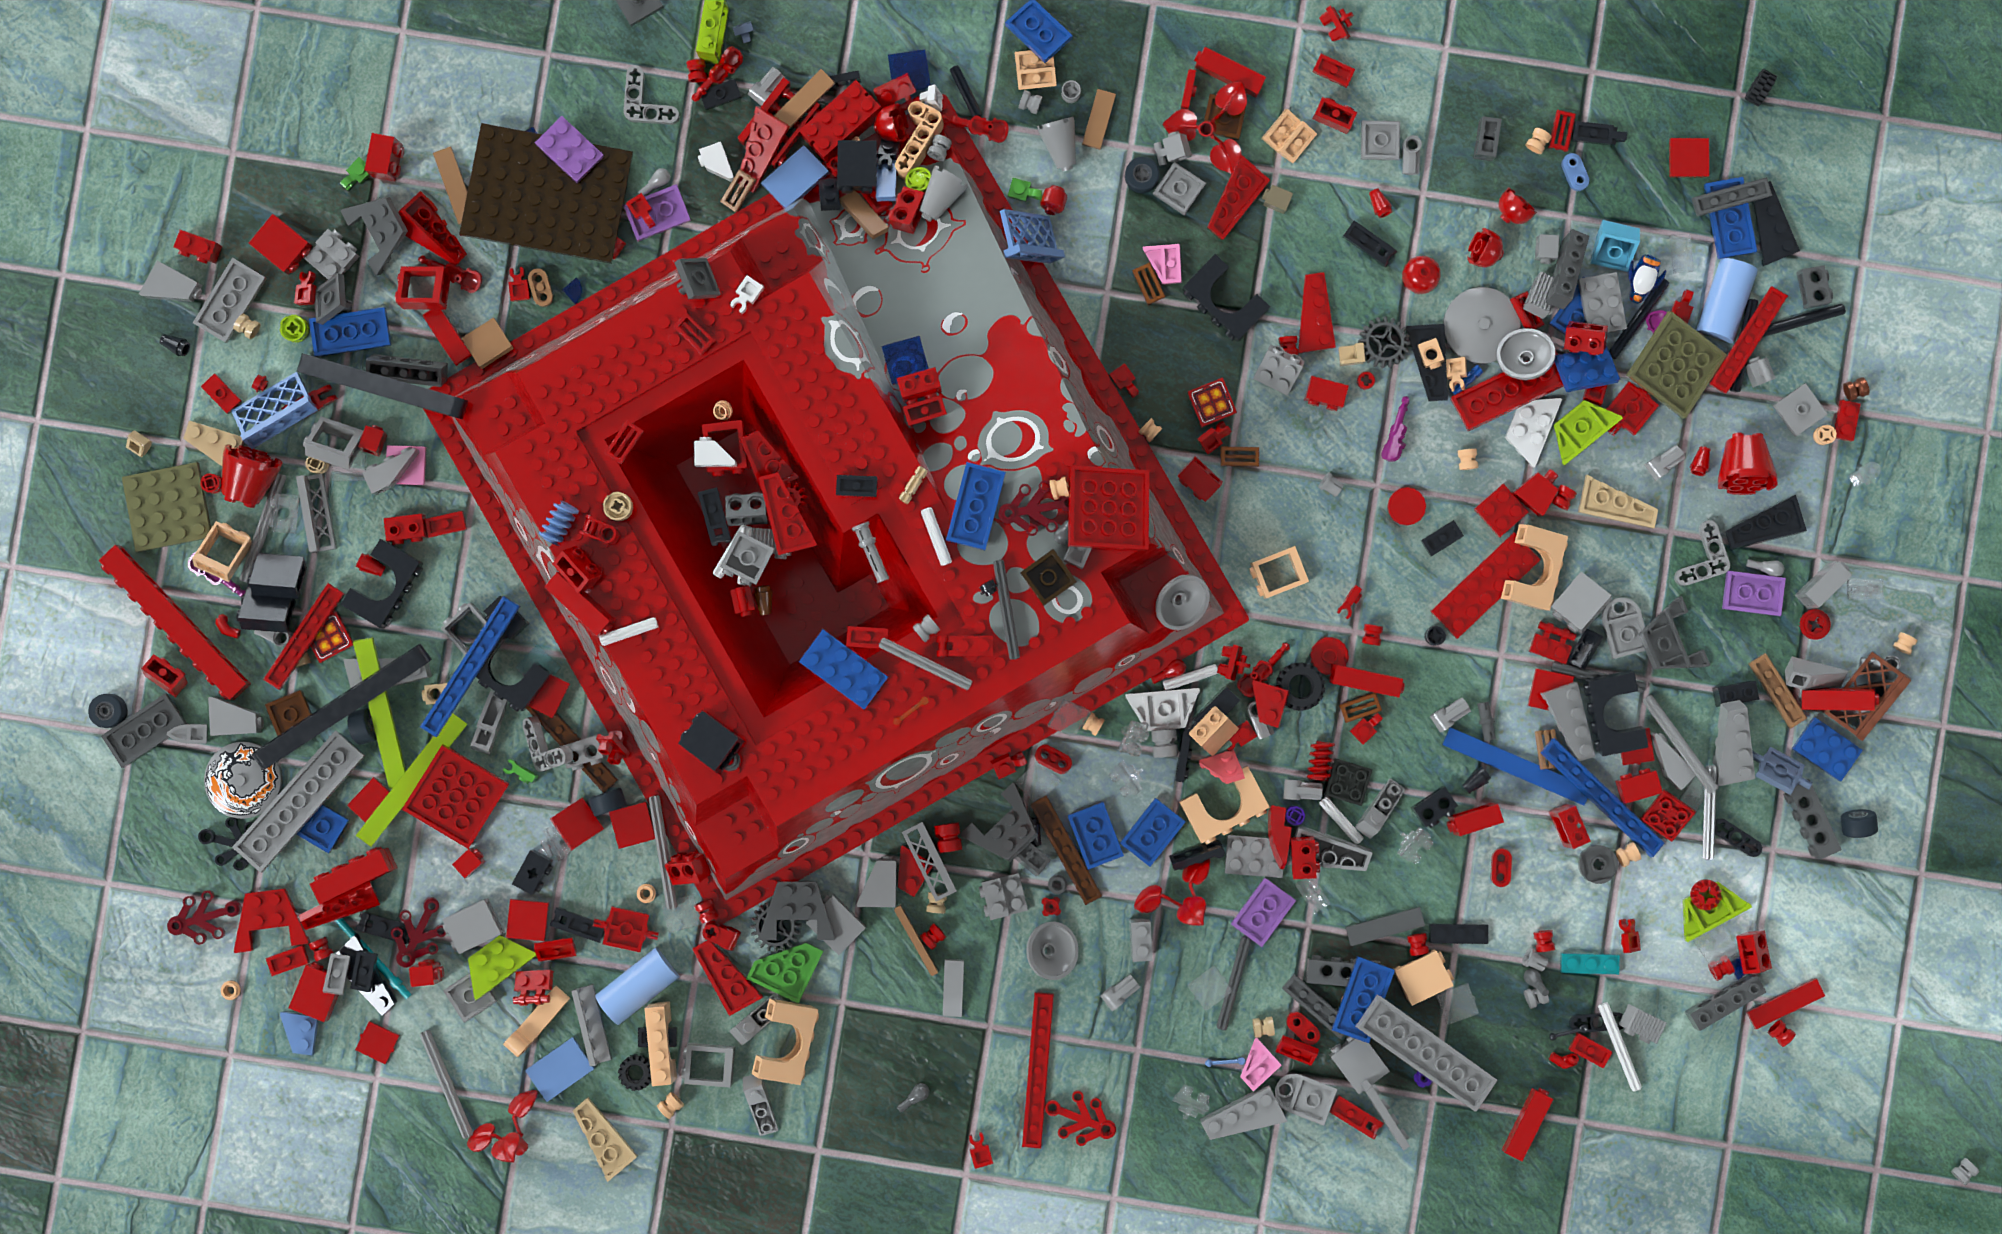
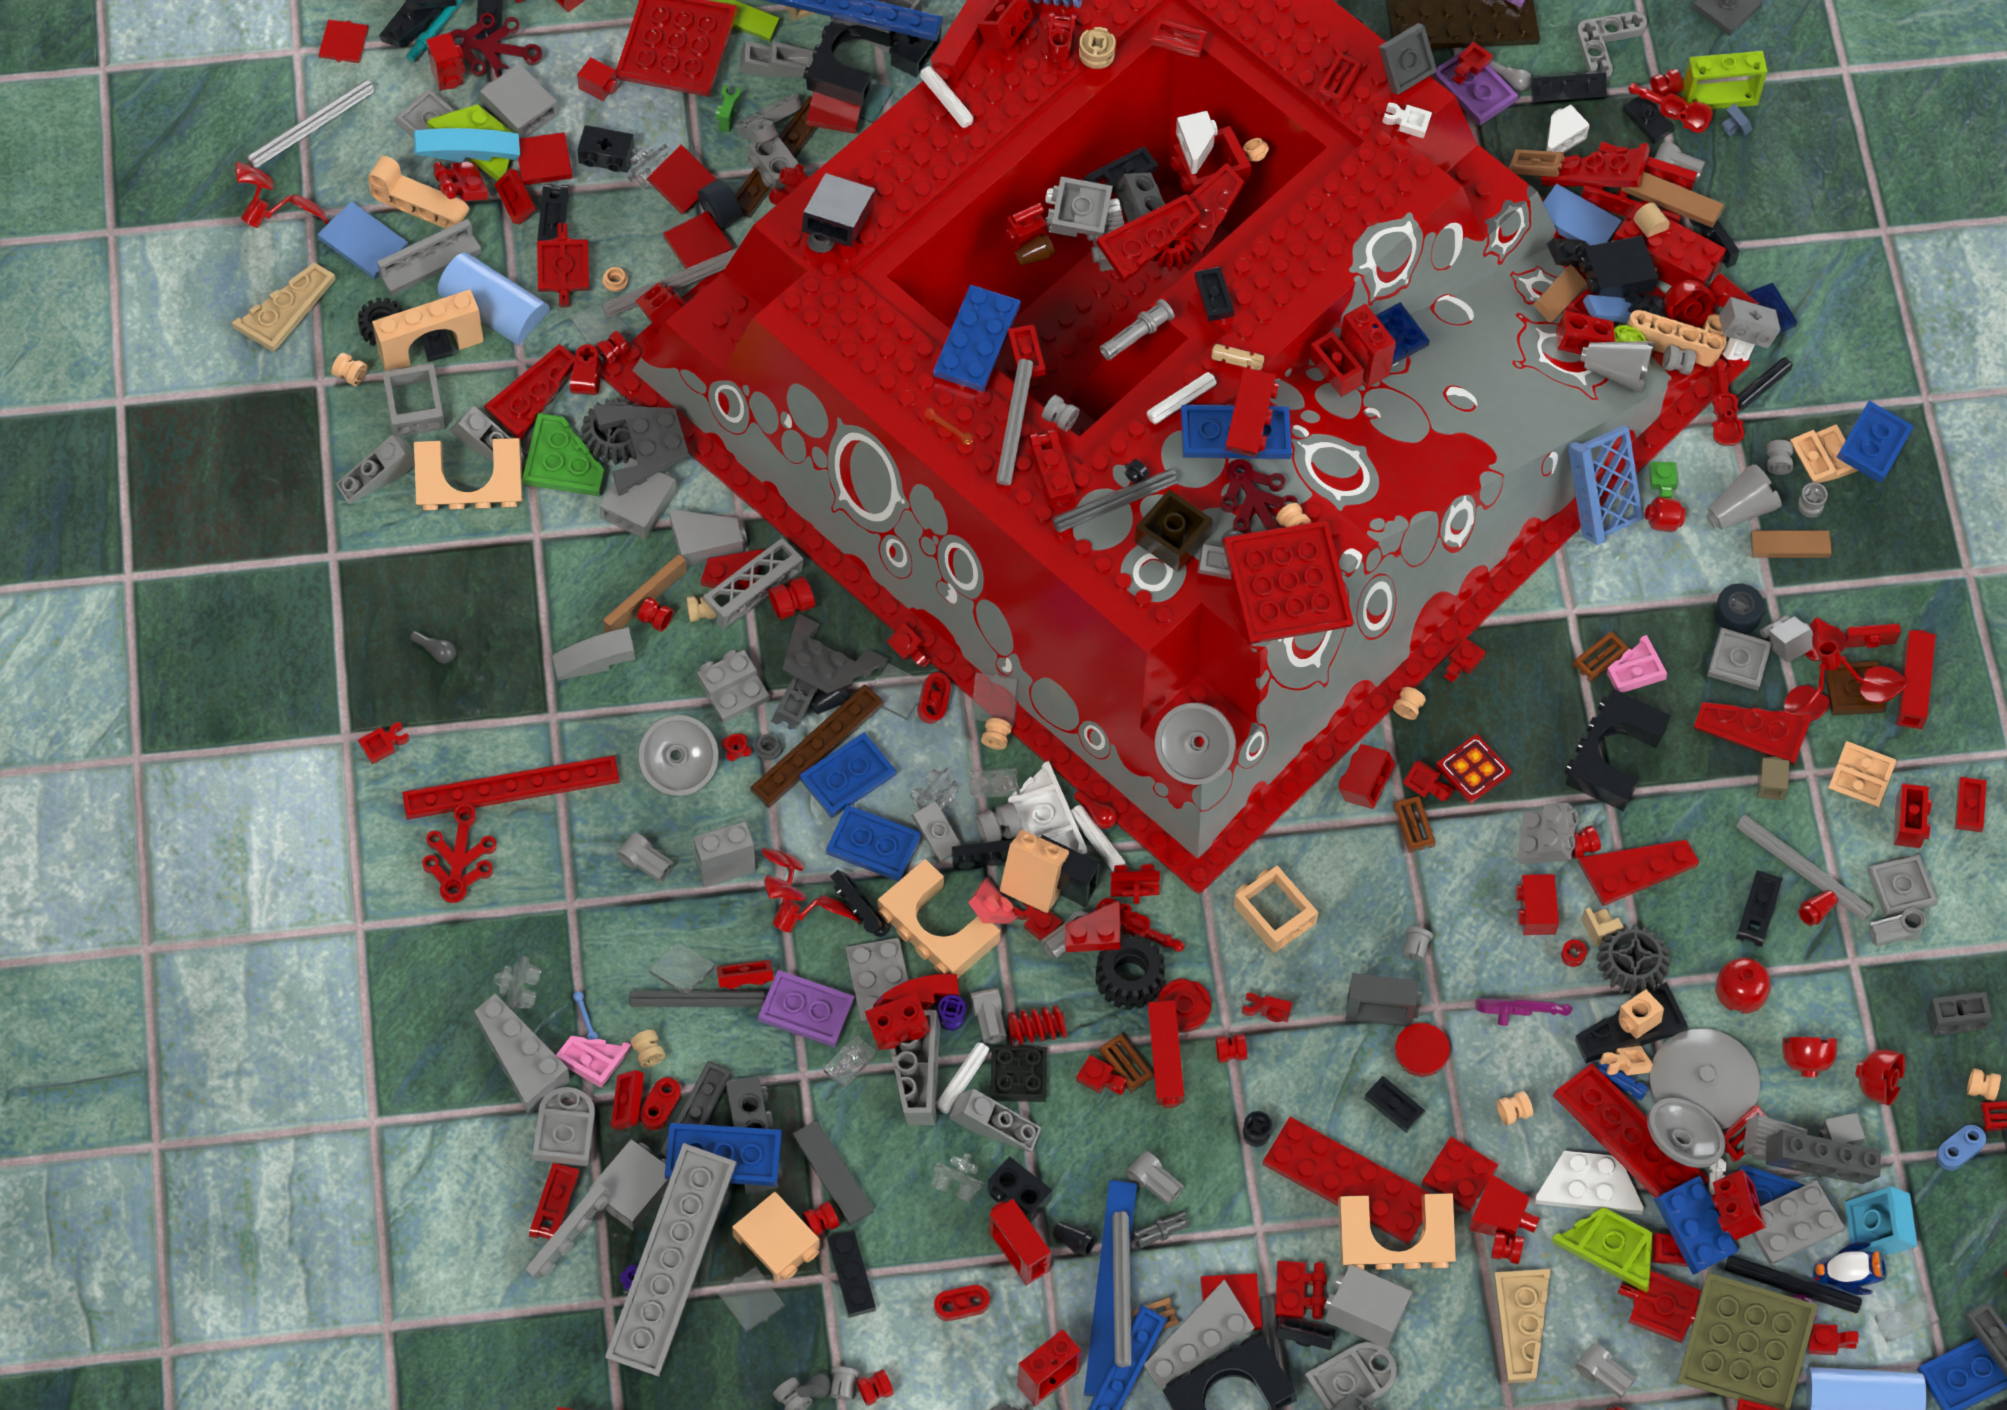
camera: 65 degrees right, 25 degrees down
(507, 977) = (459, 143): none -> medium azure slope
(678, 143) = (1568, 86): none -> black plate
(823, 127) = (1651, 220): none -> tan brick
(925, 86) = (1749, 322): none -> light grey brick
(973, 493) = (1251, 412): none -> red wedge
(1157, 786) = (936, 830): none -> light grey plate
(1226, 947) = (745, 973): none -> red plate
(1347, 201) = (1803, 867): none -> light grey axle
(1371, 523) = (1383, 1000): none -> dark grey window
(1528, 762) = (1121, 1282): none -> light grey axle

